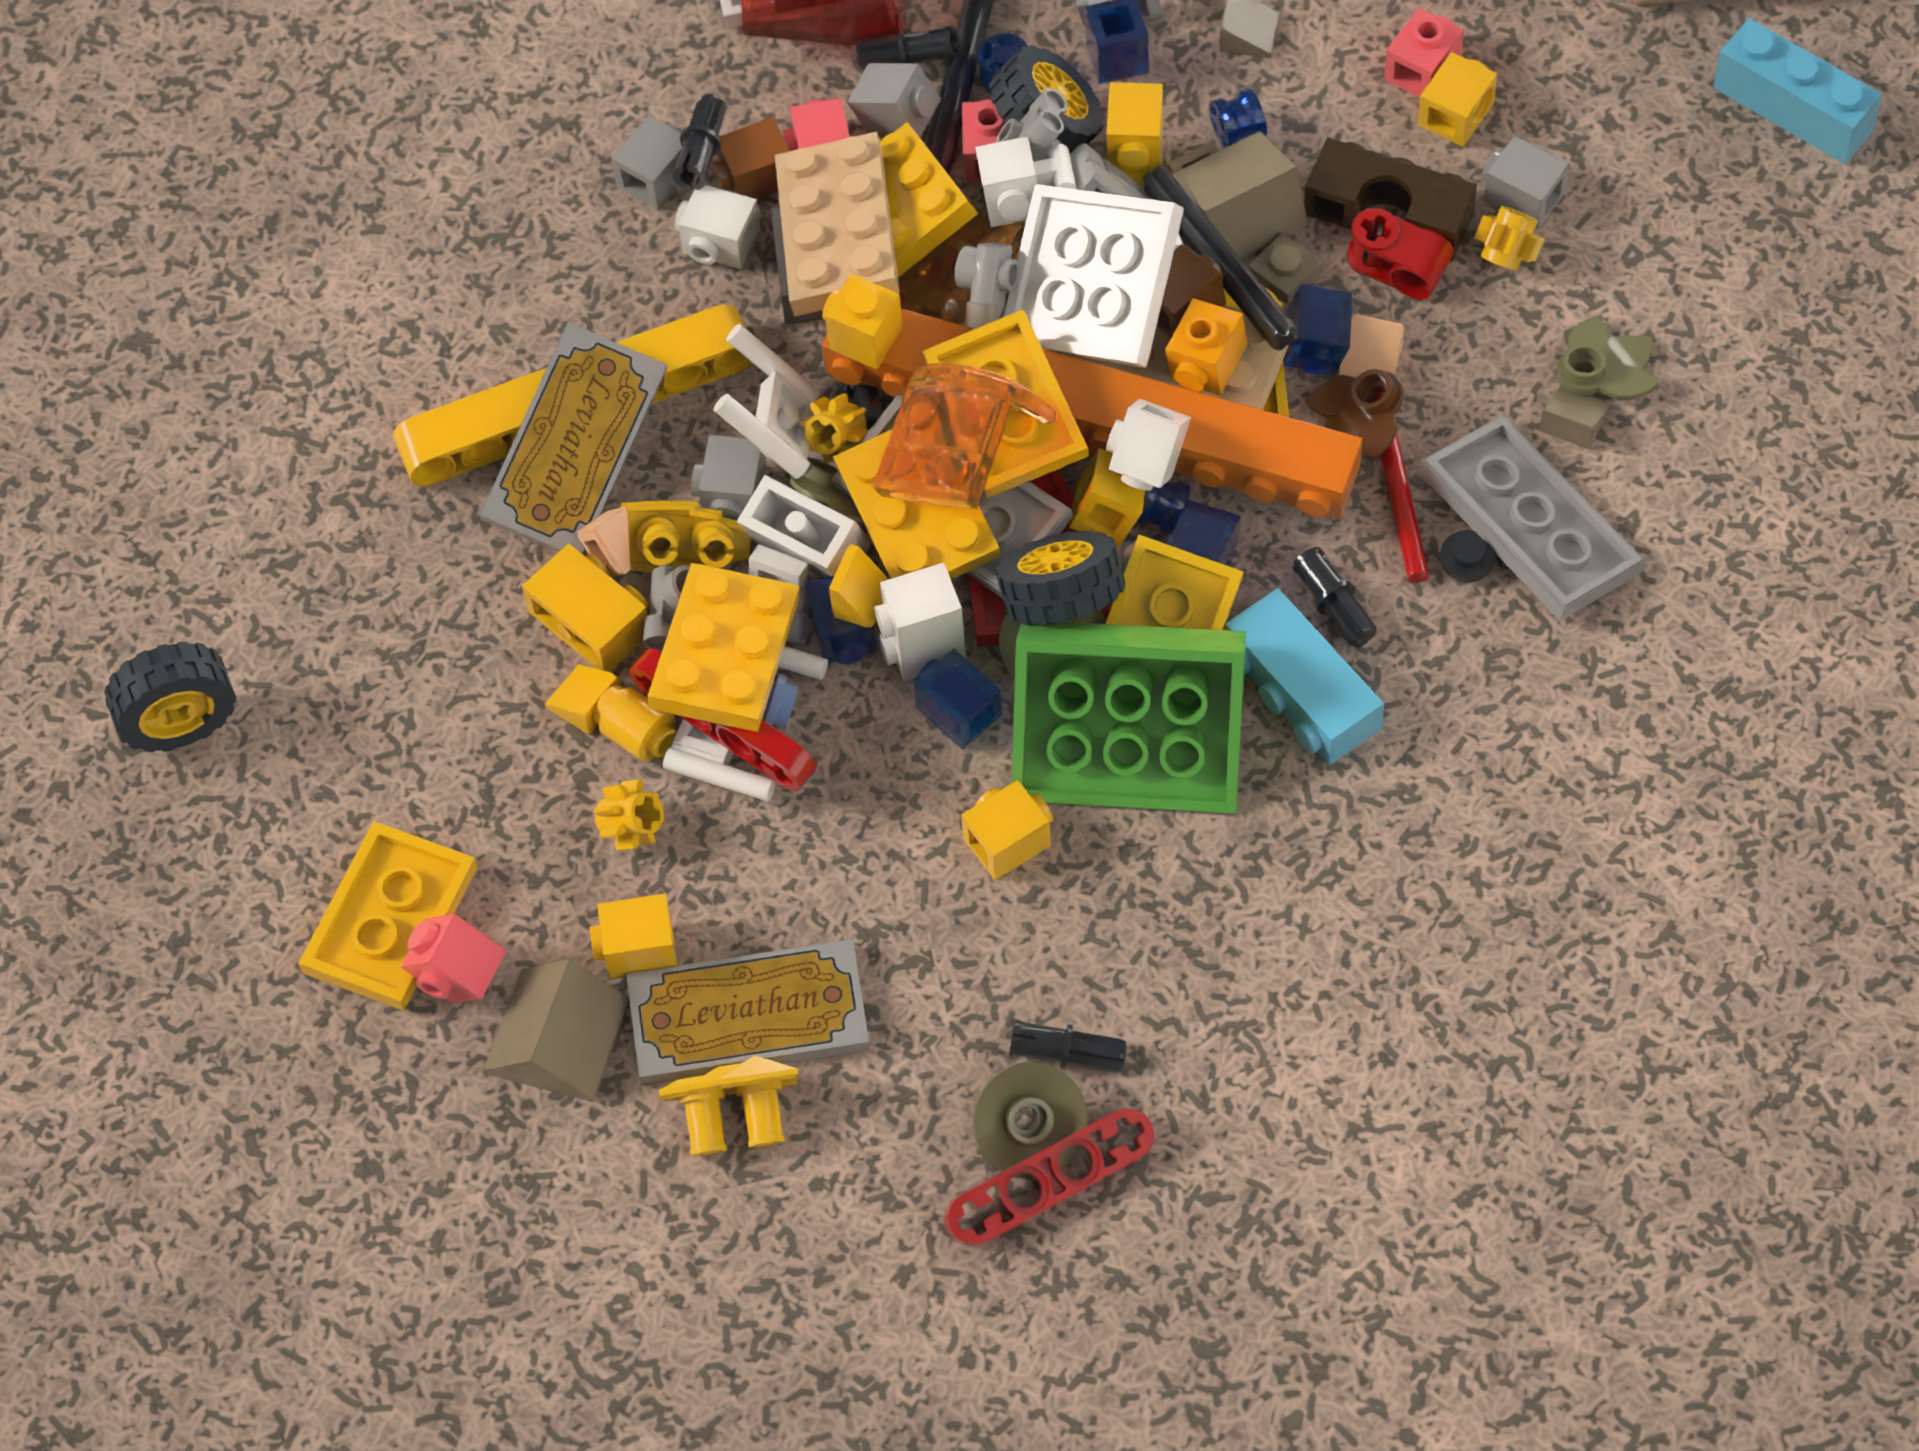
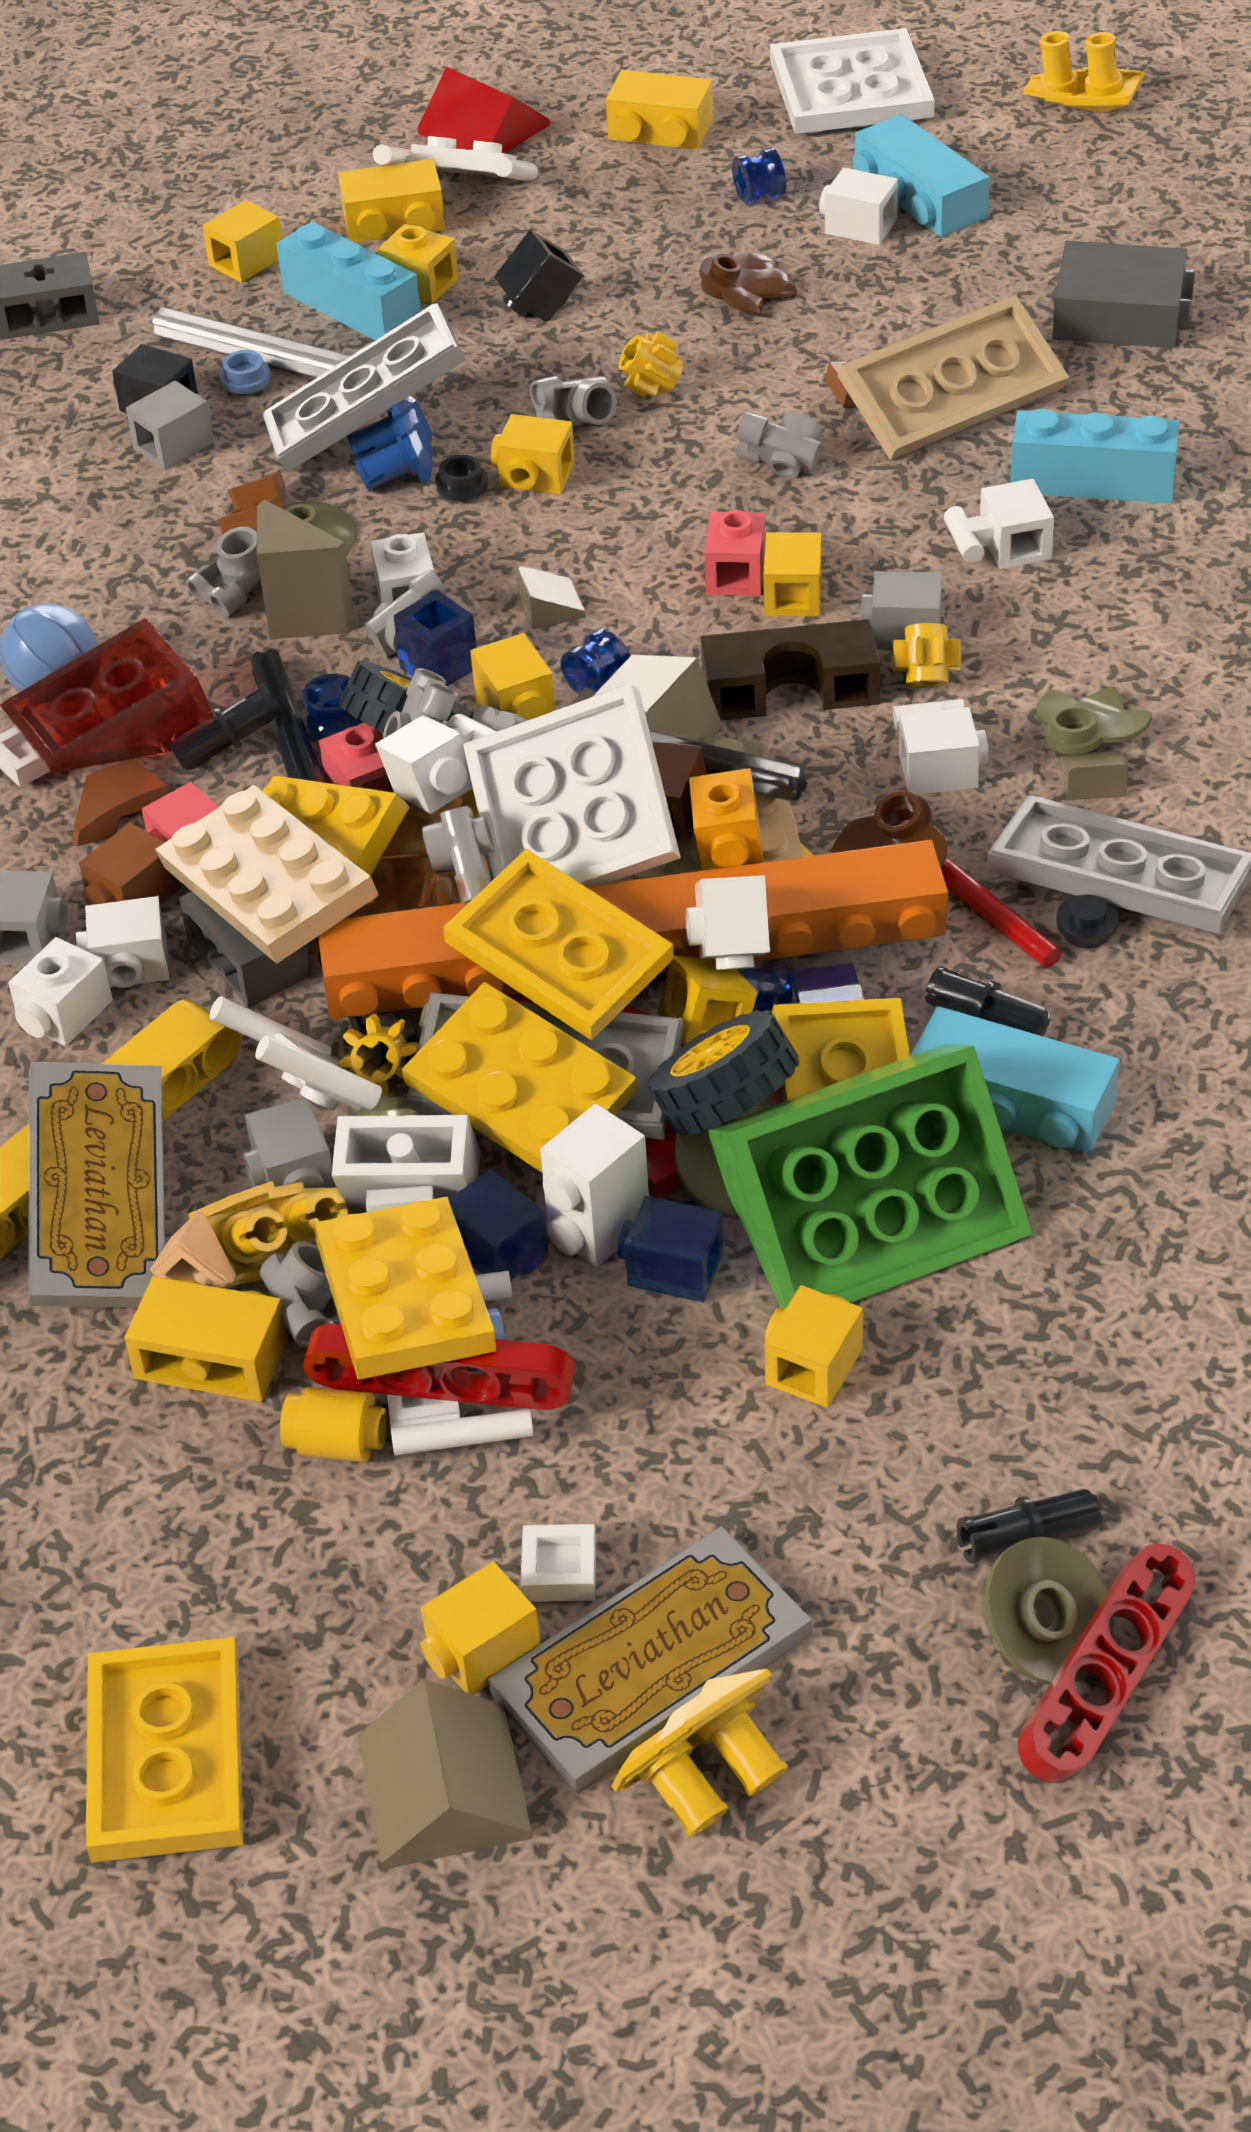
camera: 30 degrees left, 15 degrees down
(452, 959) = (278, 1750): coral brick -> none
(579, 694) = (252, 1428): yellow slope -> none
(629, 815) = (388, 1514): yellow gear -> none
(645, 249) = (60, 991): none -> white brick
(700, 142) = (68, 868): black axle -> none
(725, 910) = (558, 1562): none -> white plate
(787, 72) = (112, 794): none -> dark orange slope
(856, 588) = (510, 1178): yellow slope -> none
(862, 320) = (361, 925): yellow brick -> none
(892, 96) = (240, 760): light grey brick -> none
(951, 433) = (526, 980): clear orange piece -> none
(1321, 329) = (827, 792): clear blue brick -> none
(1372, 346) = (858, 786): light nougat slope -> none
(1401, 256) = (834, 707): red piece -> none
(1460, 331) = (939, 746): none -> white brick
(1676, 132) = (1011, 523): none -> white brick

